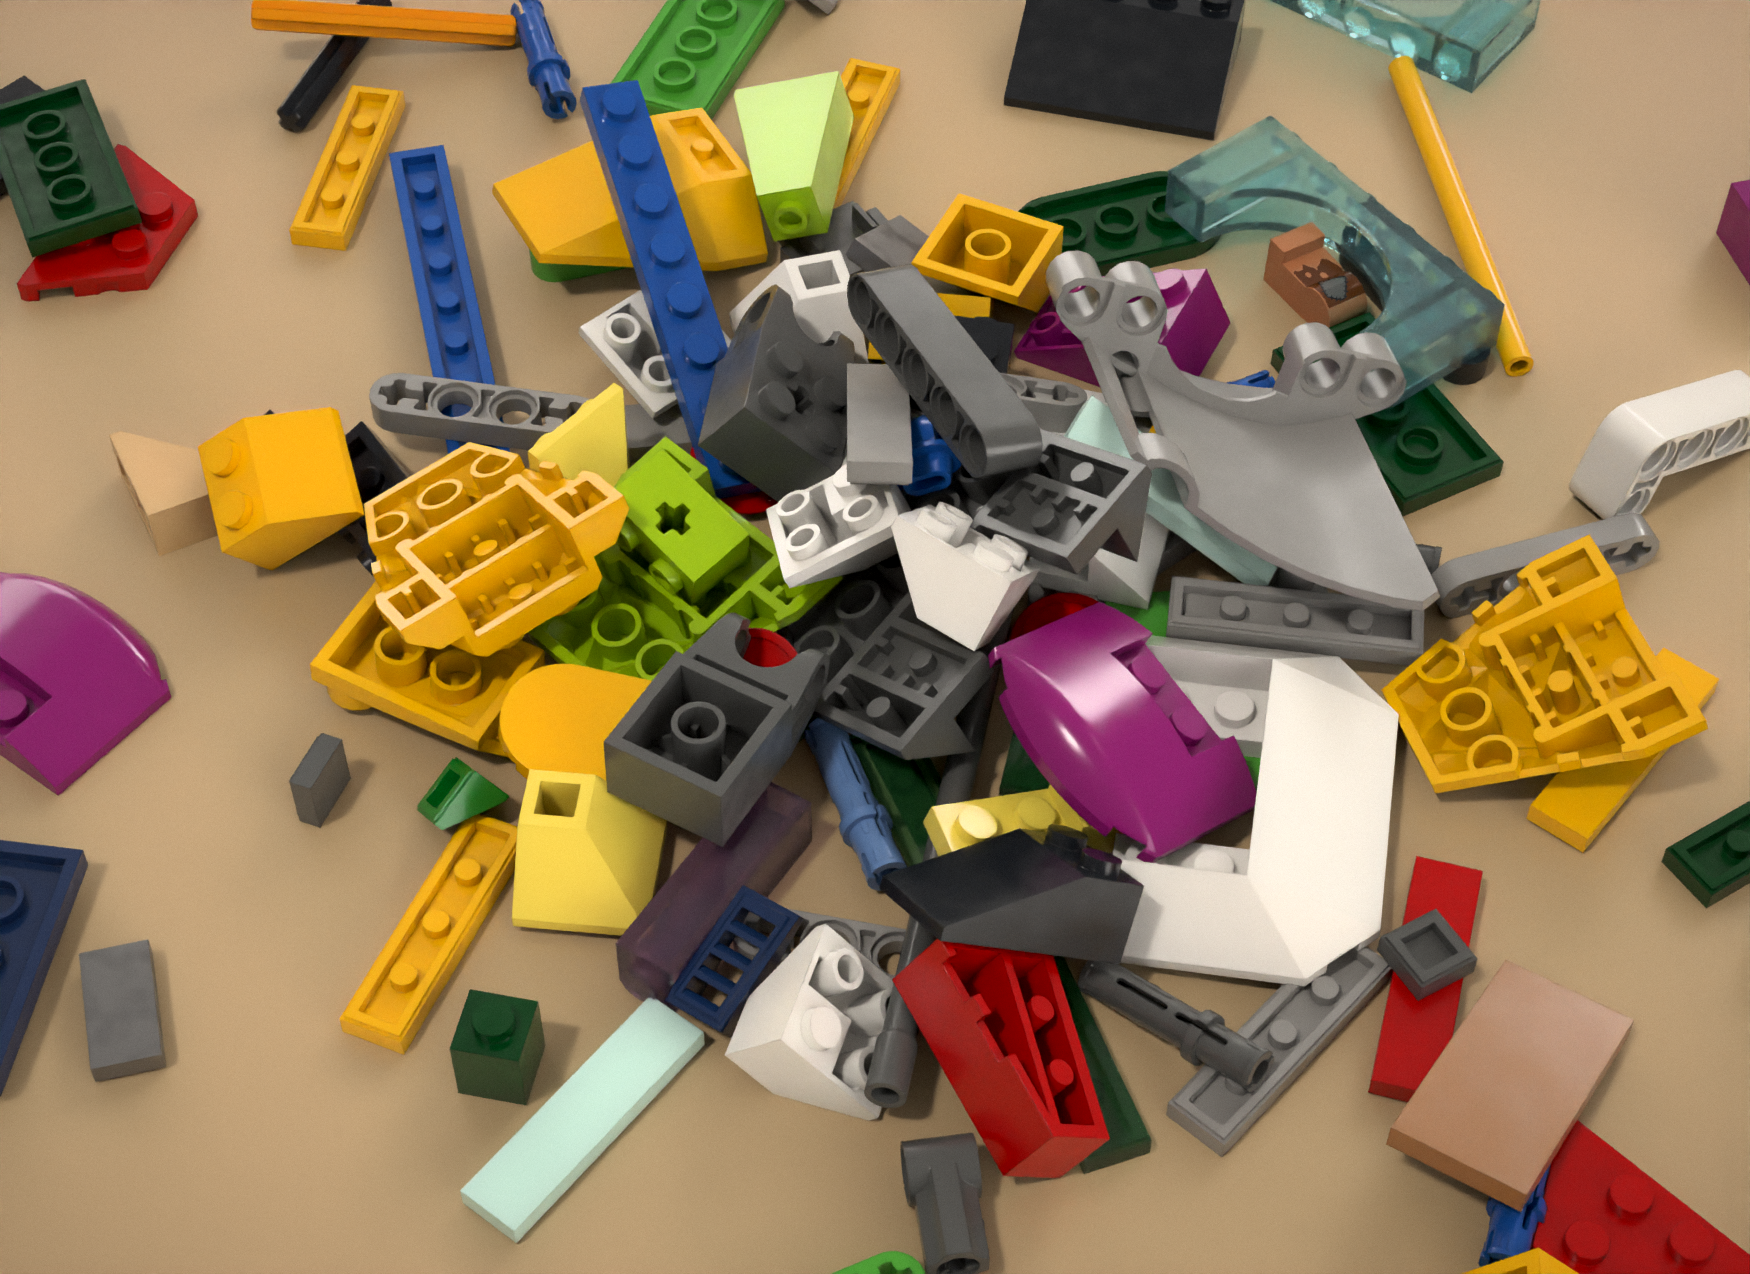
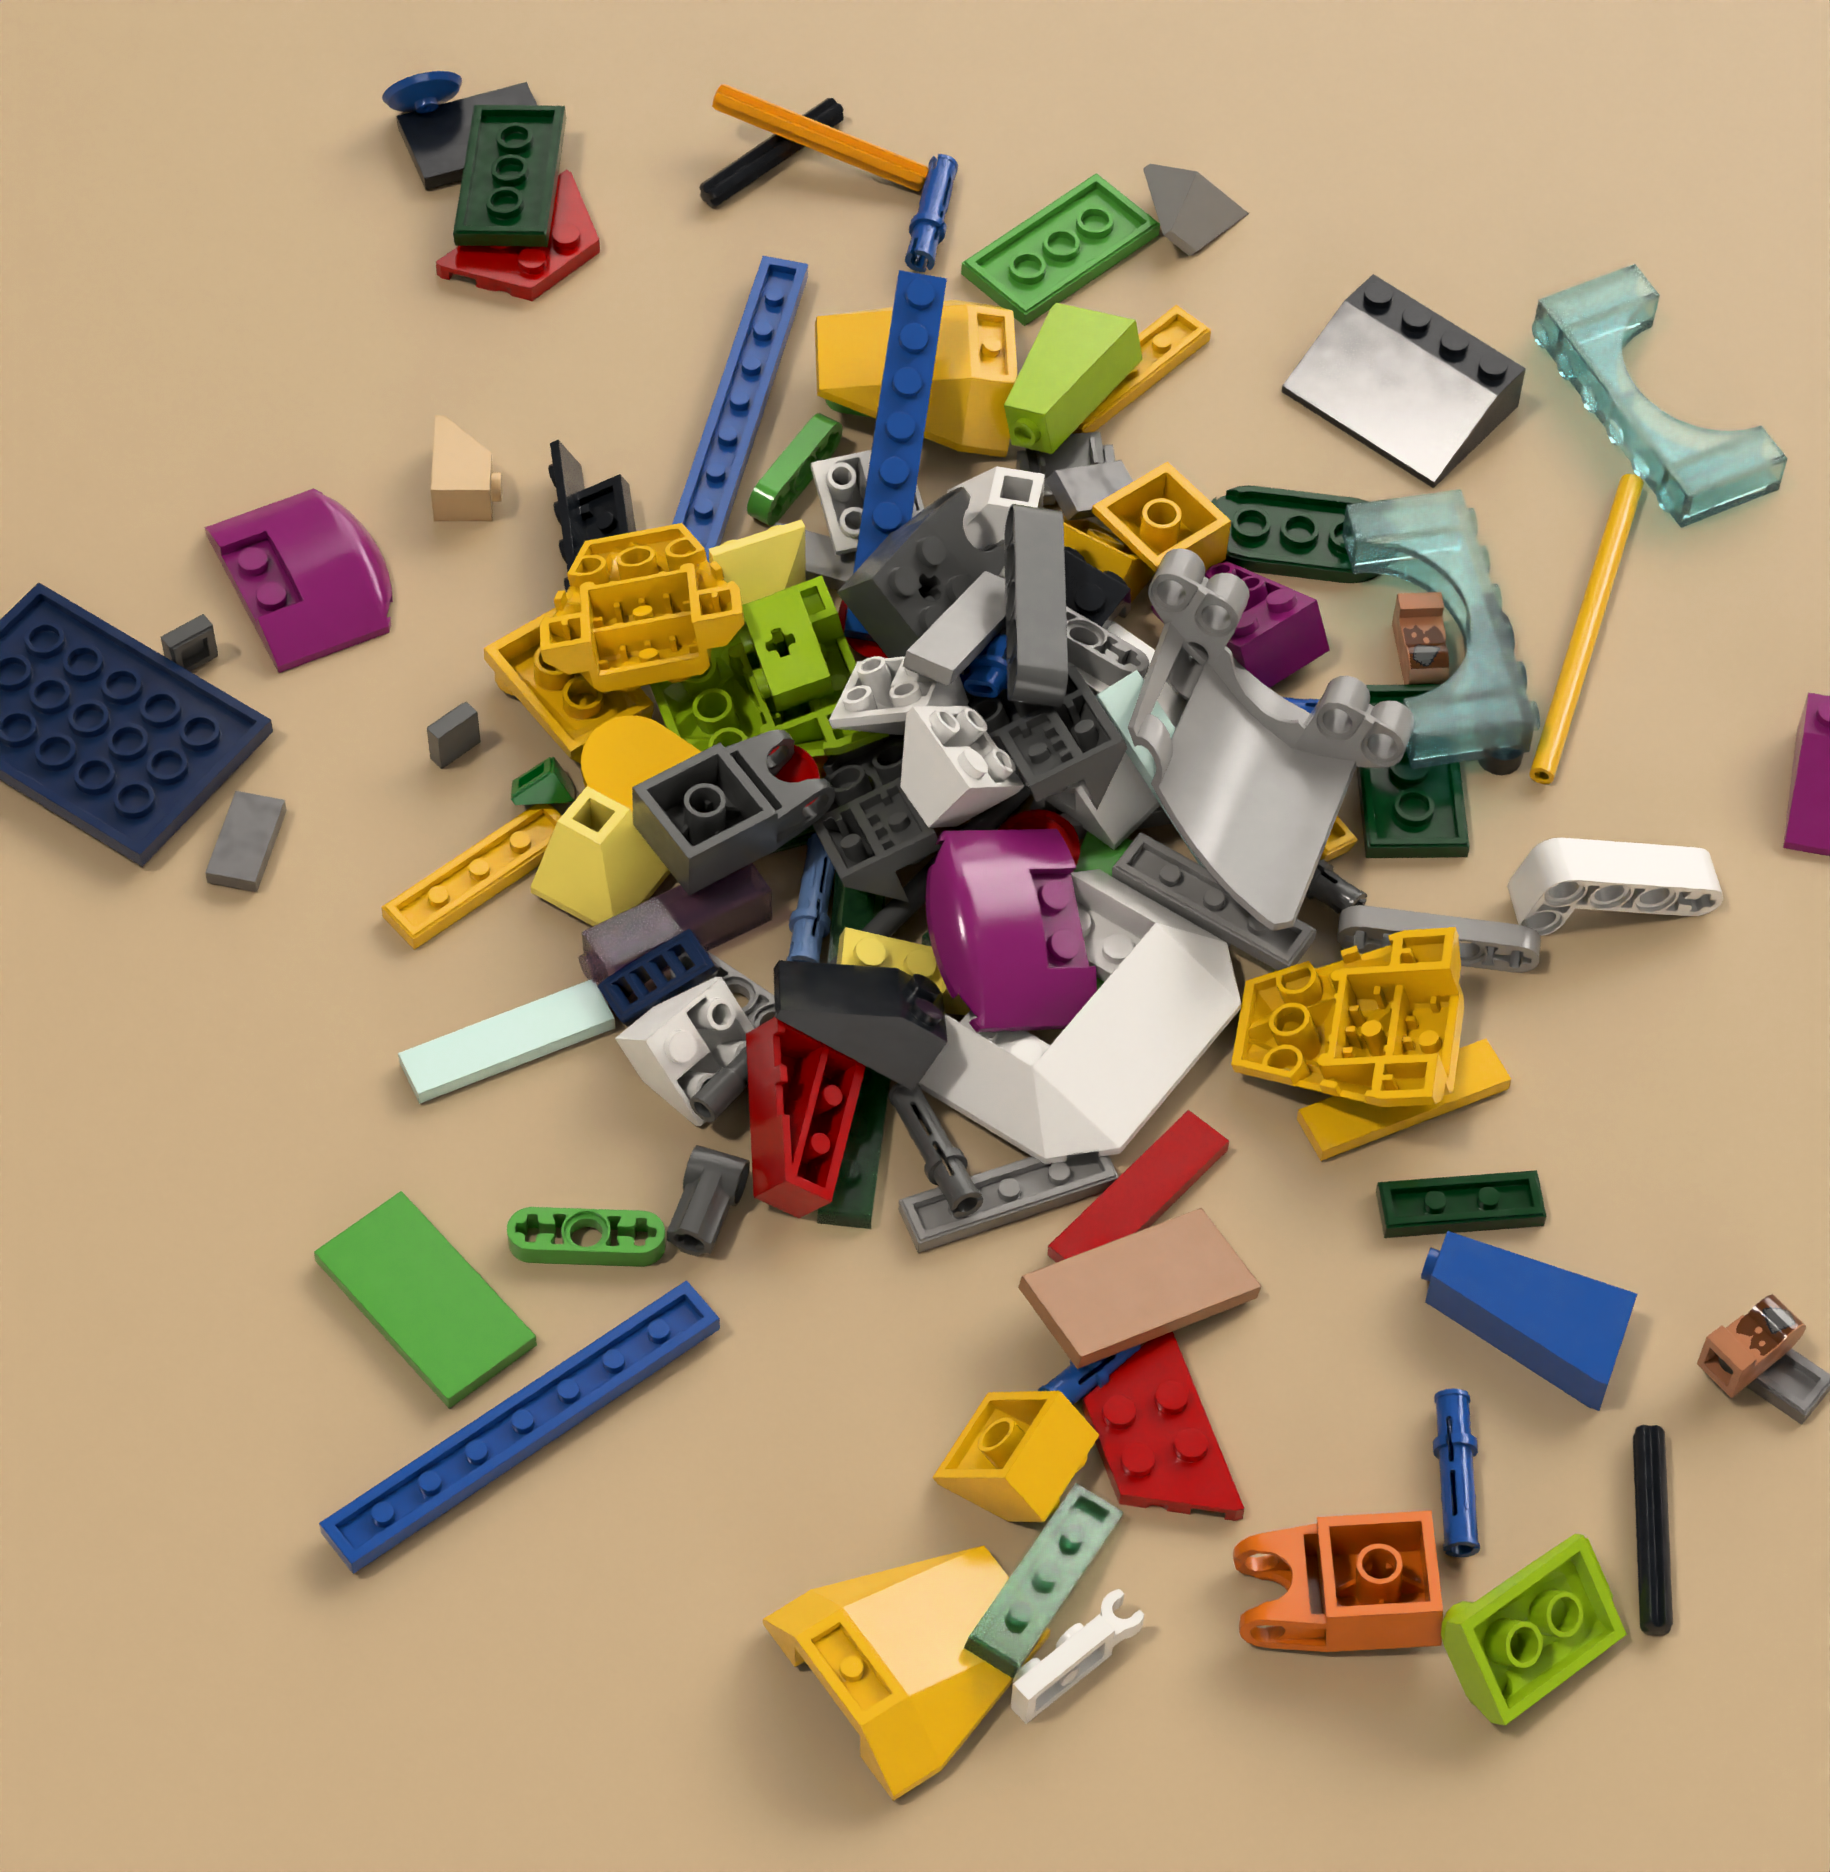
camera: 25 degrees right, 5 degrees up
(280, 484) = (532, 502): yellow slope -> none
(347, 168) = (731, 253): yellow tile -> none
(479, 424) = (706, 508): light grey beam -> none
(497, 1047) = (470, 969): dark green brick -> none
(552, 339) = (792, 469): none -> bright green beam
(1427, 954) = (1143, 1179): dark grey tile -> none

